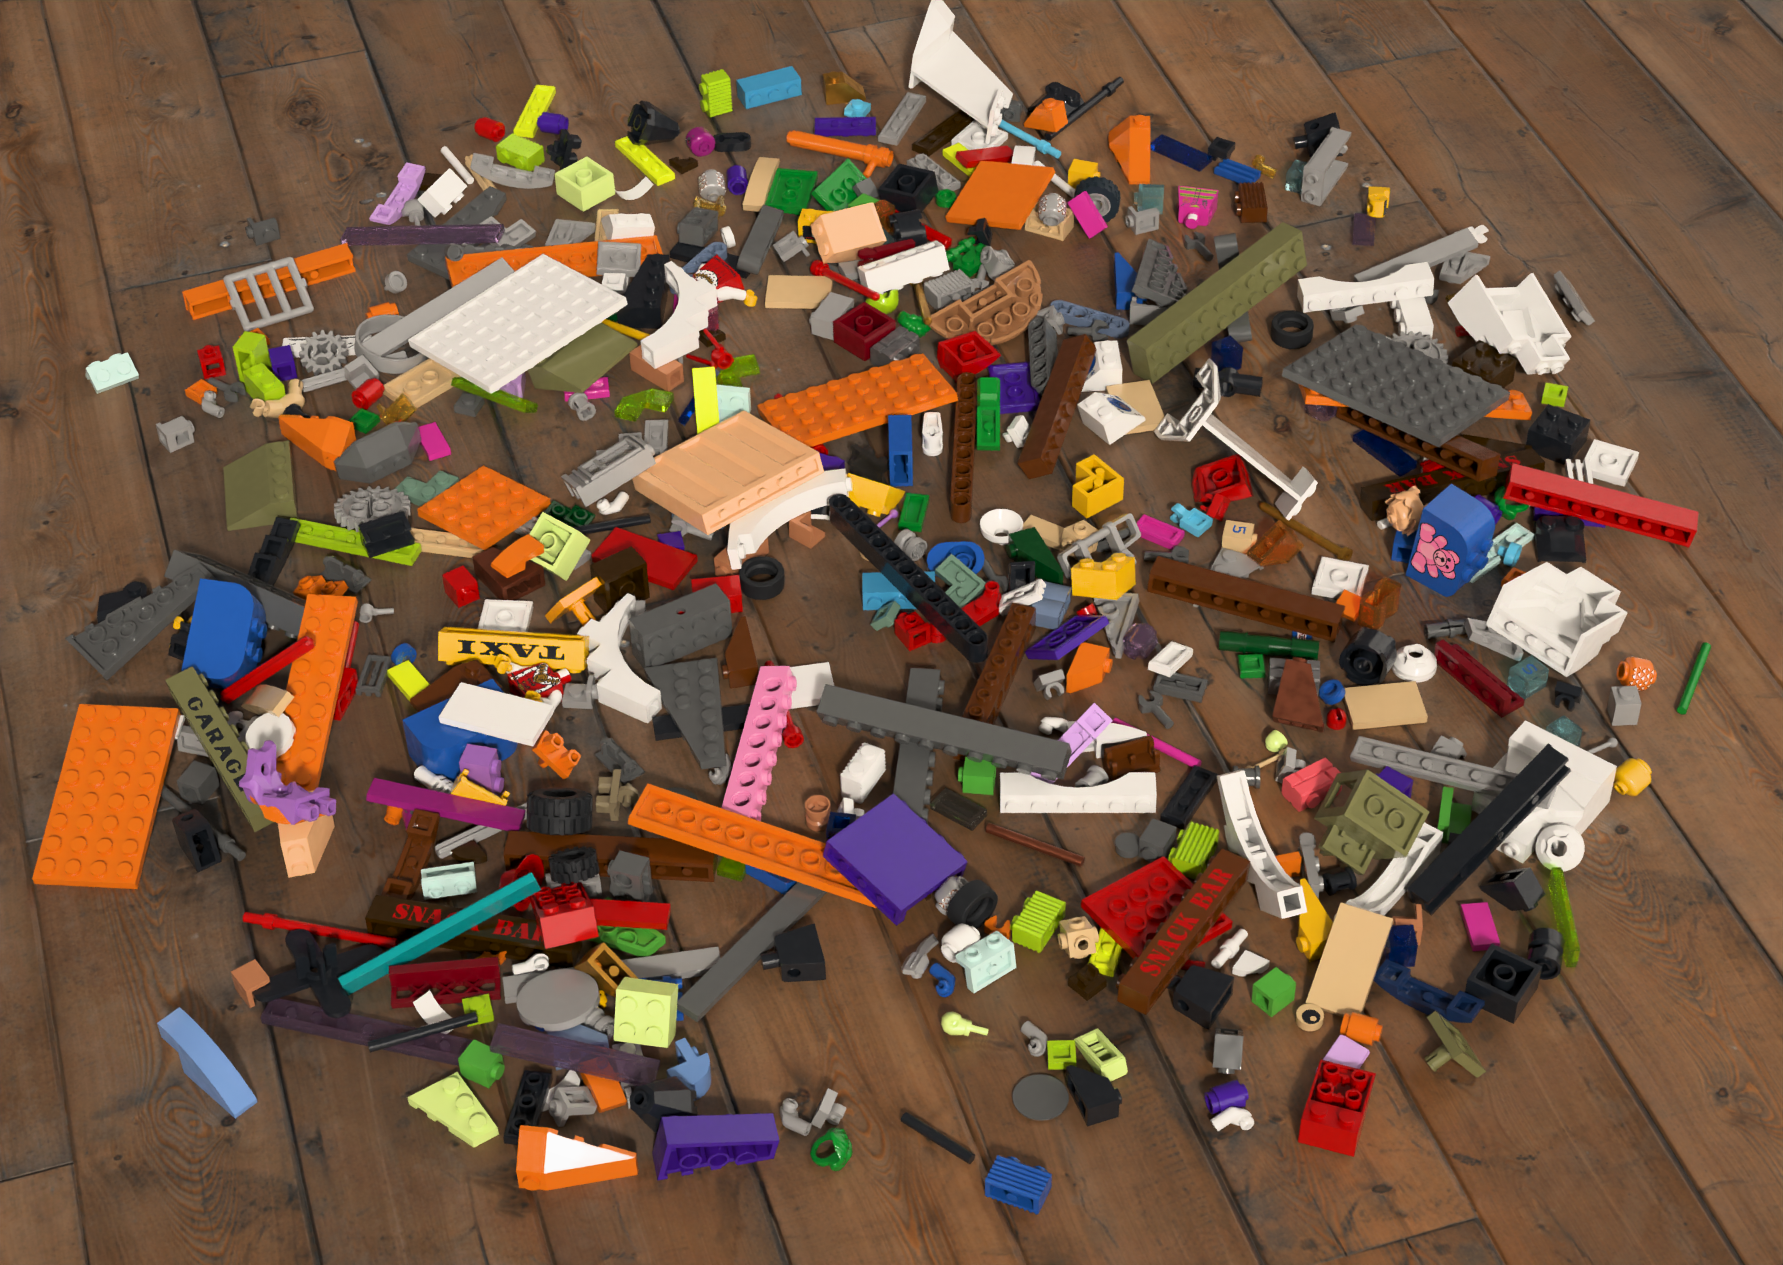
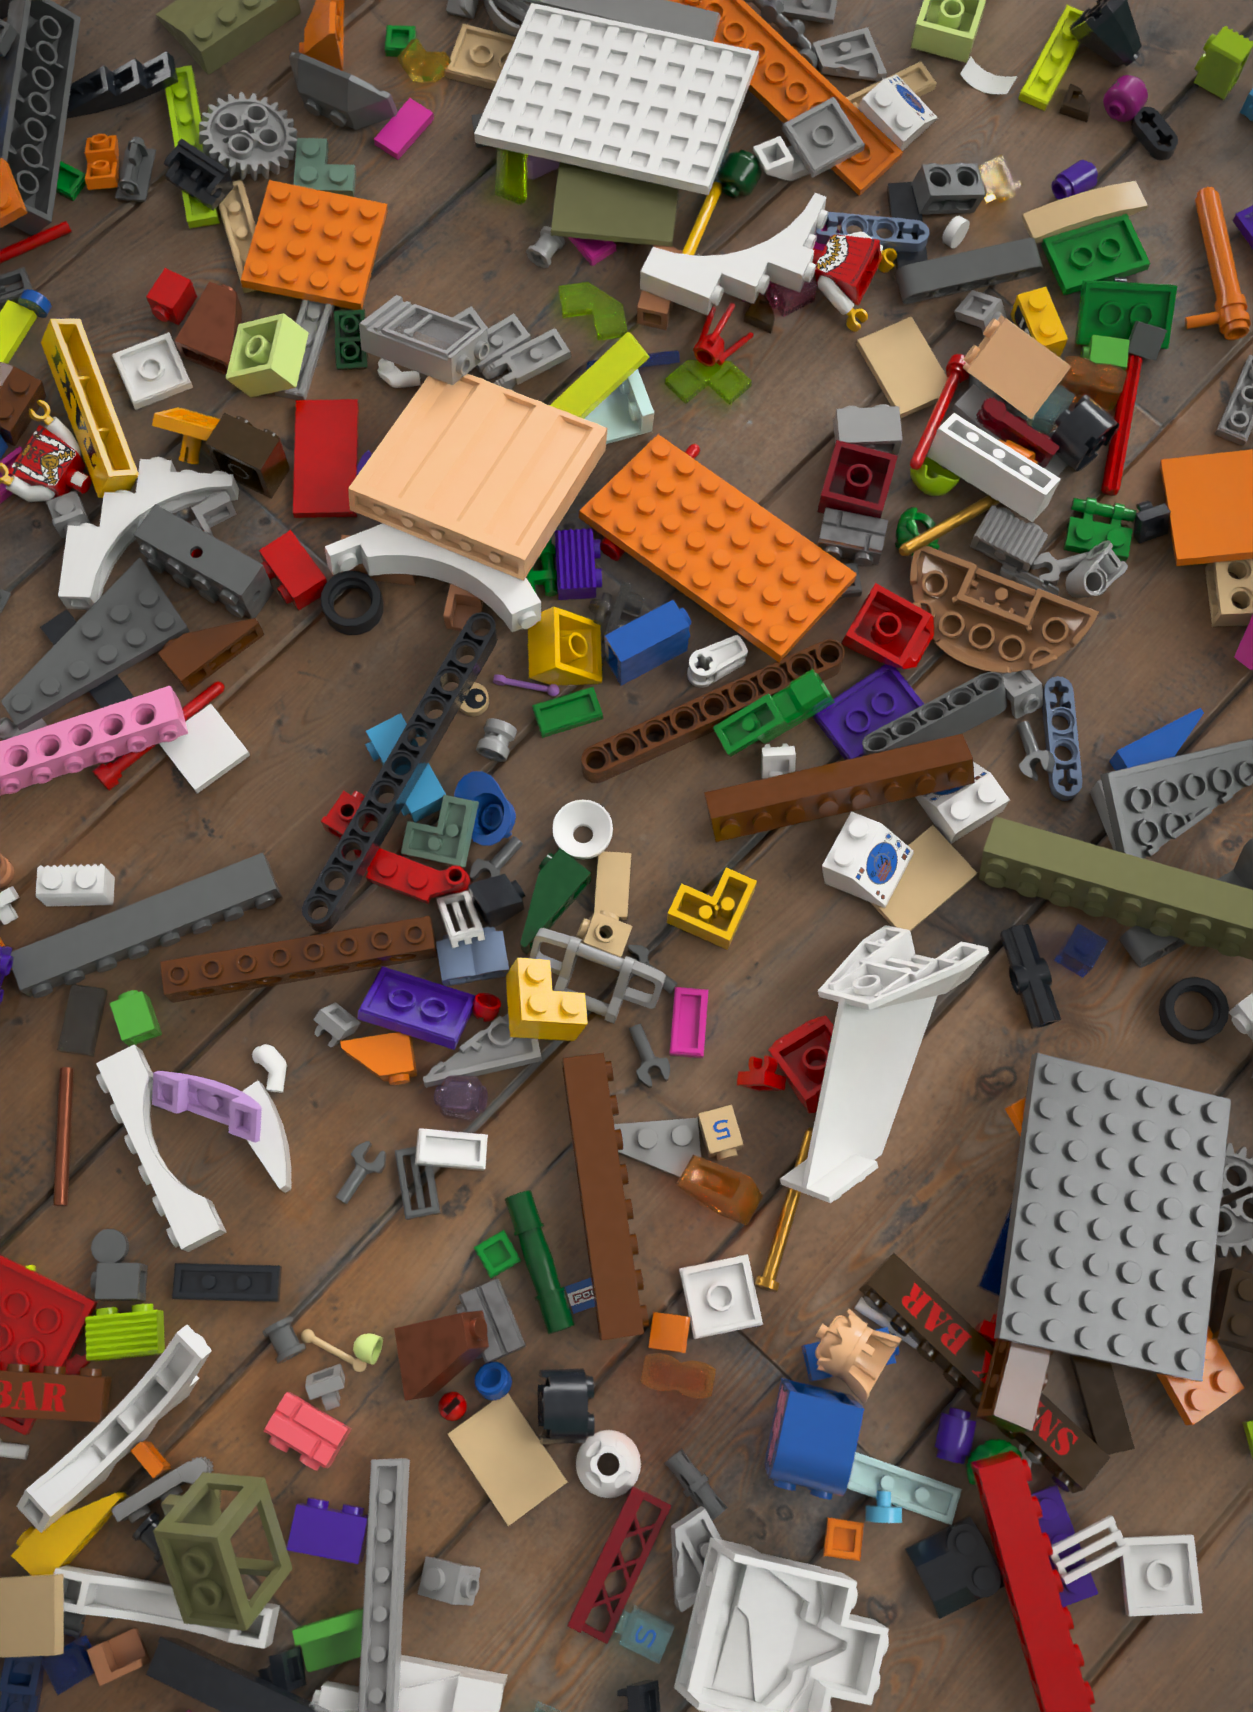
camera: 60 degrees right, 30 degrees up
(367, 393) = (439, 17): red brick -> none
(367, 612) = (90, 228): light grey hand -> none
(514, 557) = (216, 326): orange slope -> none
(610, 525) = (350, 385): black bar -> none
(646, 295) = (772, 203): black wedge -> none
(711, 185) = (1044, 159): light grey head -> none
(885, 616) = (356, 775): sand green plate -> none
(909, 188) = (1176, 389): black brick -> none
(944, 732) = (145, 954): dark grey brick -> none
(945, 198) = (1204, 440): green tile -> none
(1052, 209) = (1226, 587): light grey head -> none
(1094, 777) = (188, 1155): light grey bush -> none
(1131, 757) = (246, 1187): reddish brown hinge -> none
(1168, 749) = (300, 1199): dark pink bar -> none
(1191, 521) = (726, 1059): medium azure plate -> none
(1558, 434) = (1173, 1478): black brick -> none

